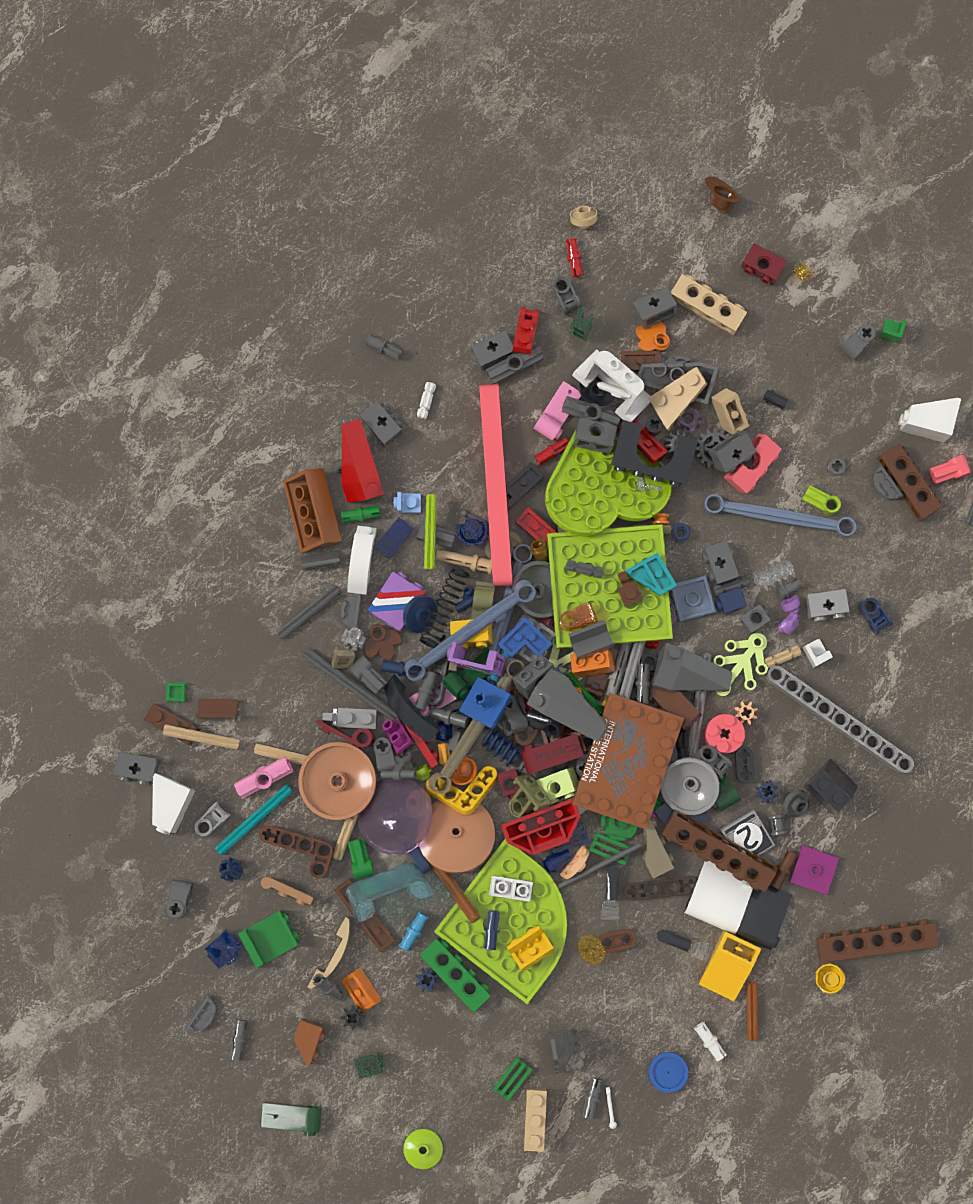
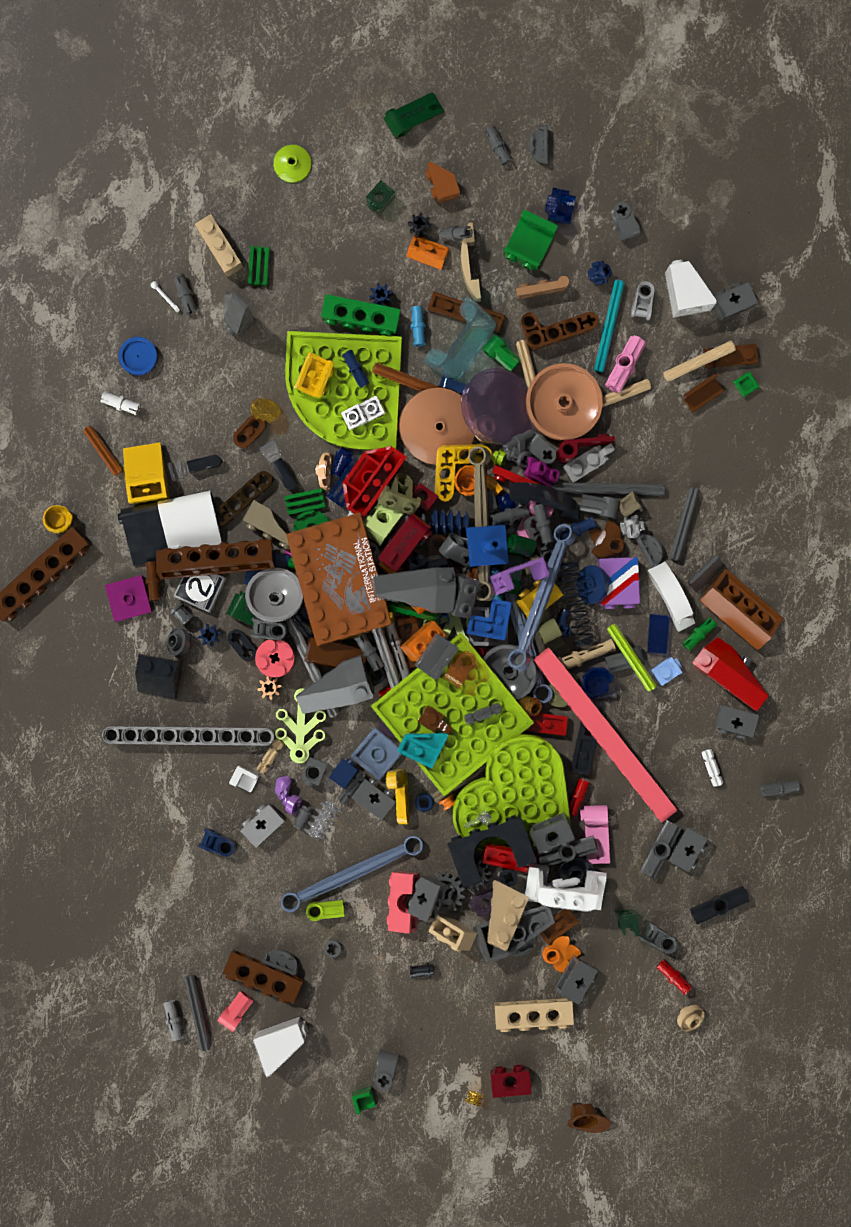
camera: 145 degrees right, 5 degrees up
(510, 290) = (707, 909): none -> black piece
(525, 331) = (670, 883): red plate -> none
(600, 865) = (303, 483): dark grey axle -> none
(692, 562) = (398, 780): none -> yellow beam

